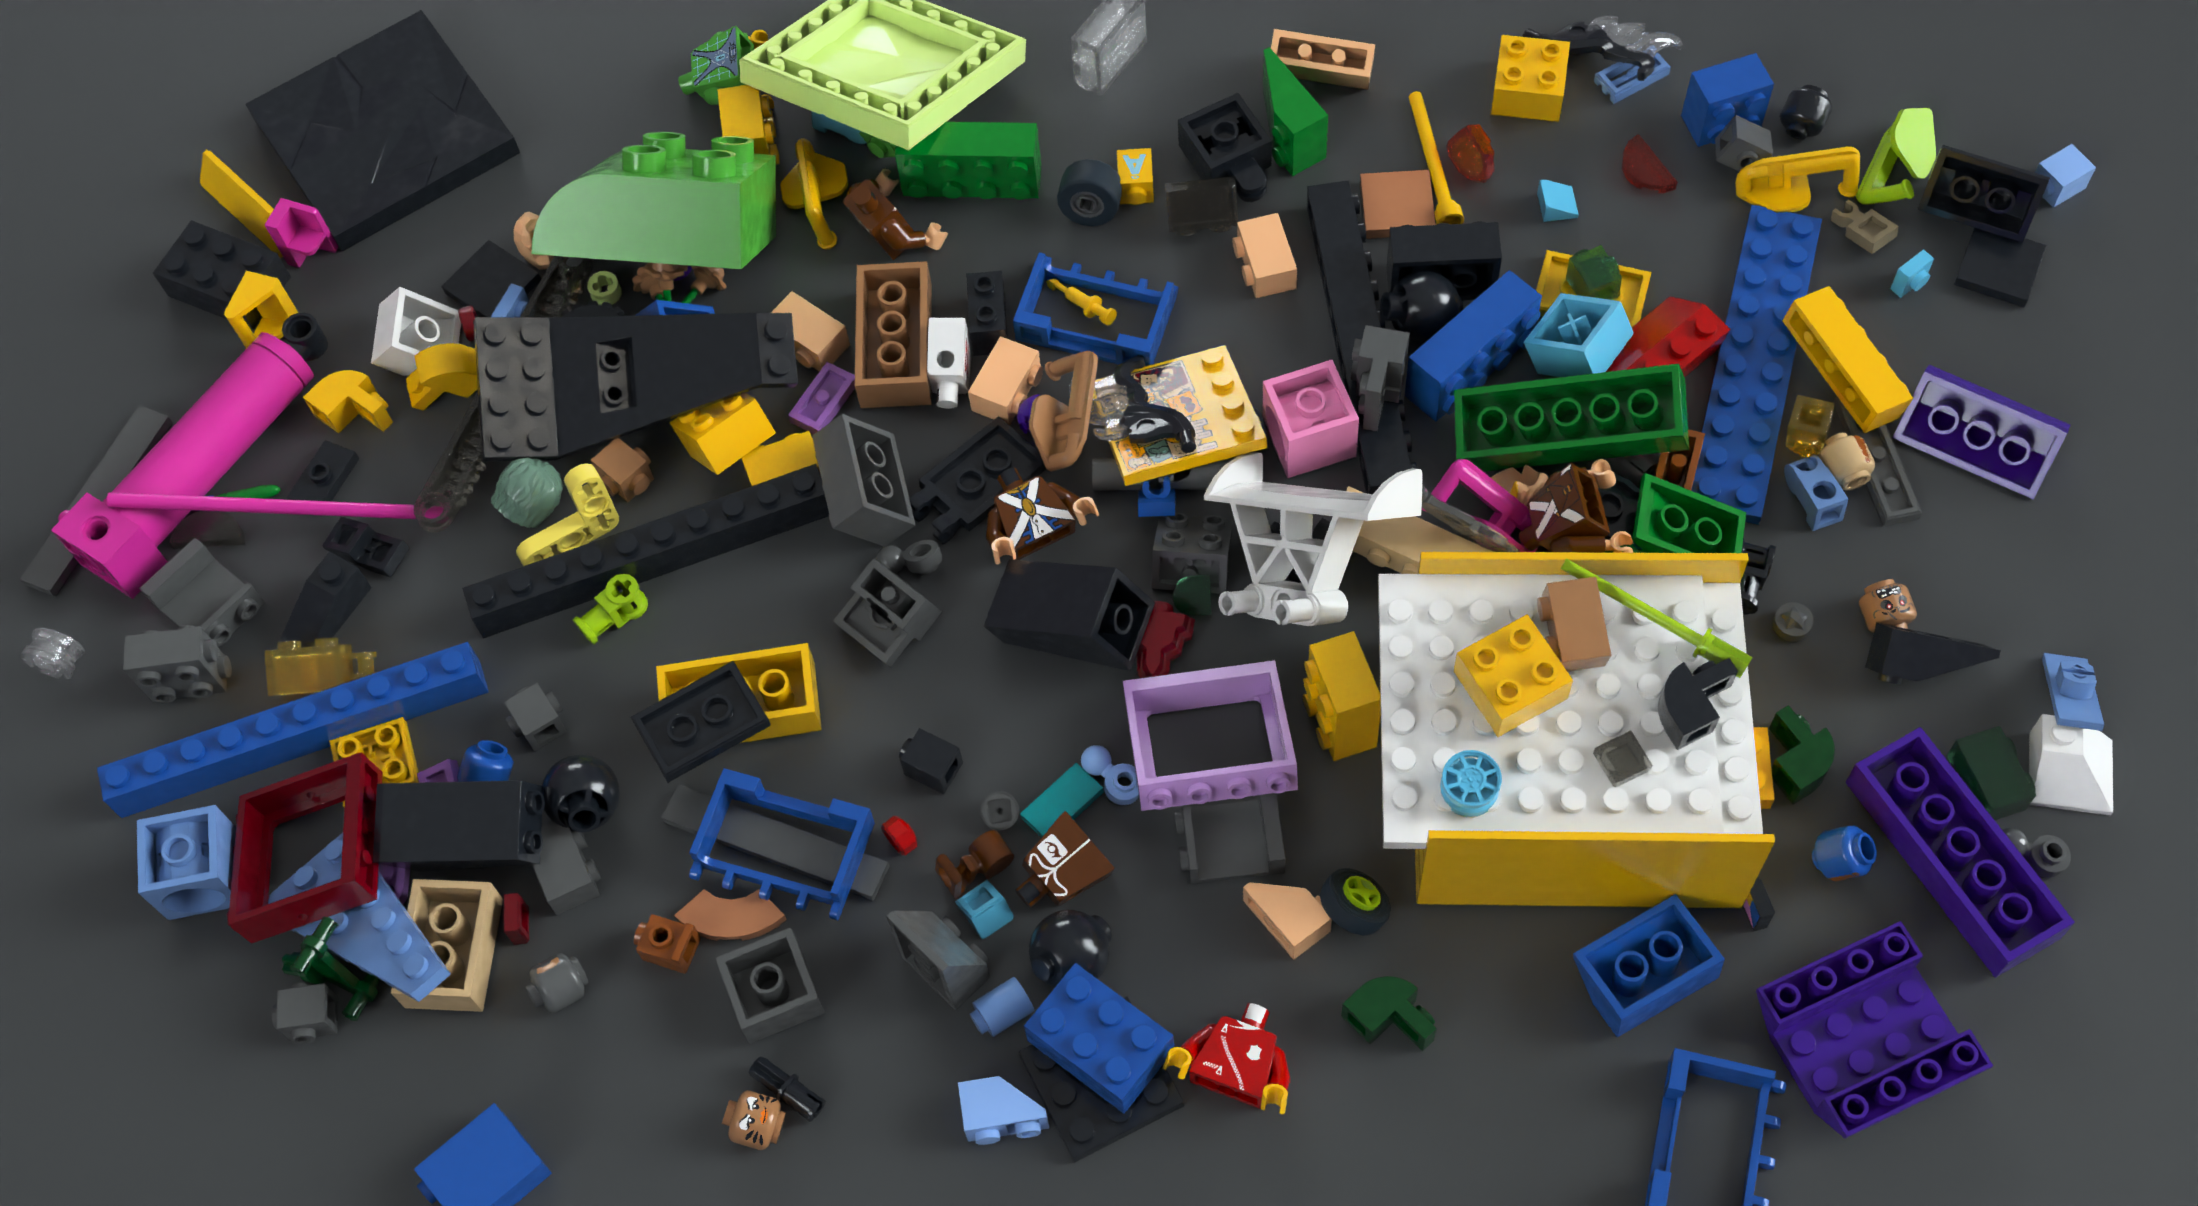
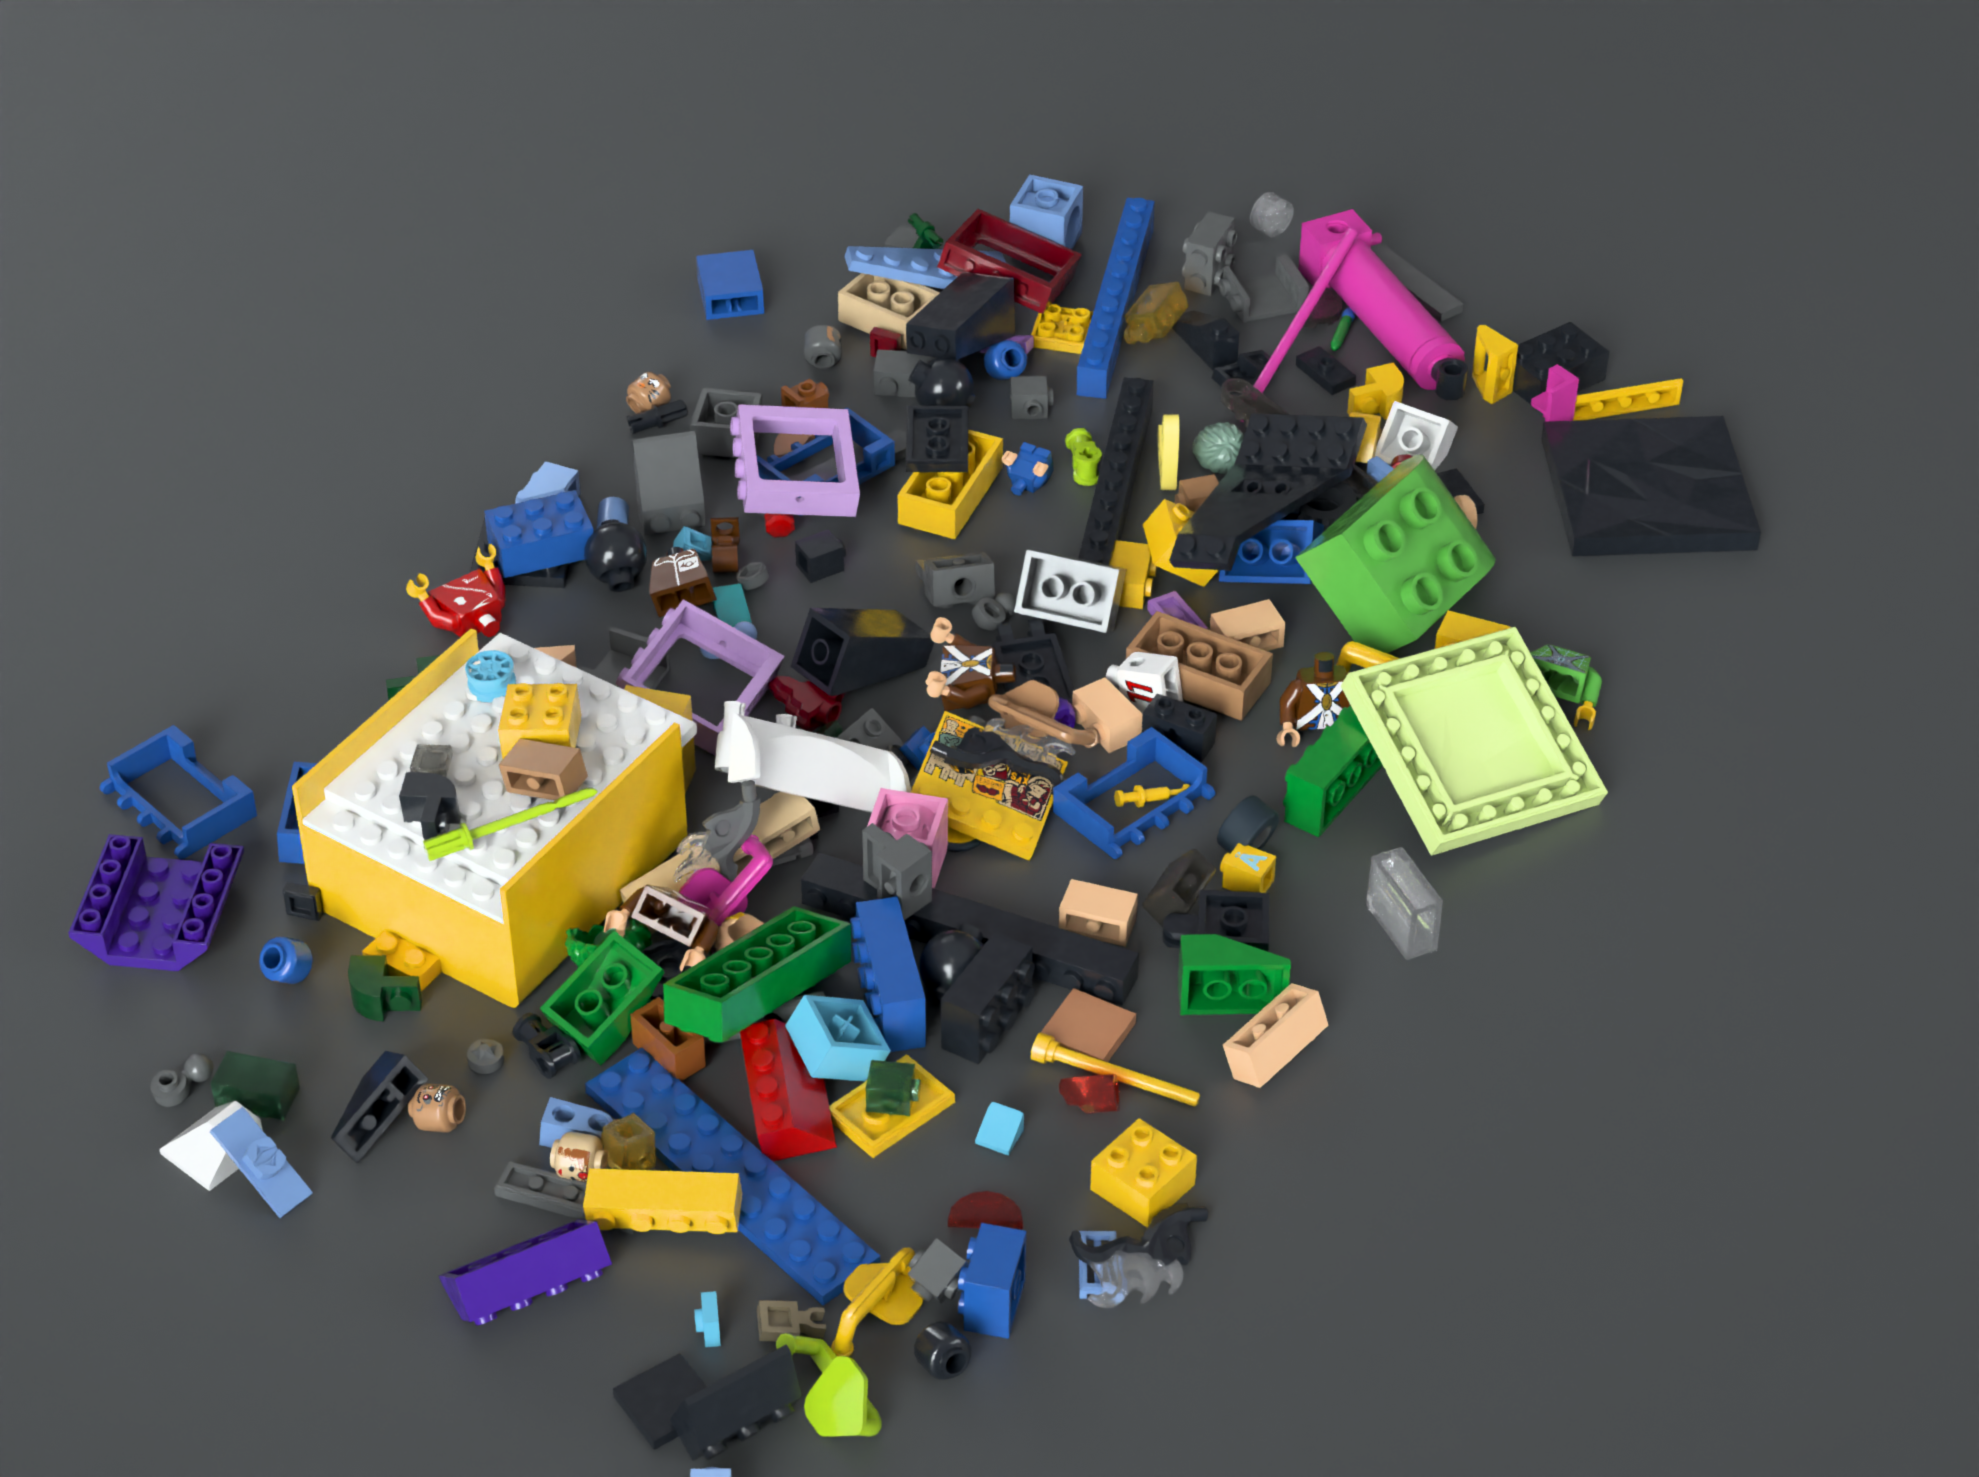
camera: 115 degrees right, 20 degrees down
(665, 643) = (1029, 468): none -> blue piece
(847, 887) = (782, 495): none -> lavender piece
(1959, 852) = (212, 1016): dark purple brick -> none

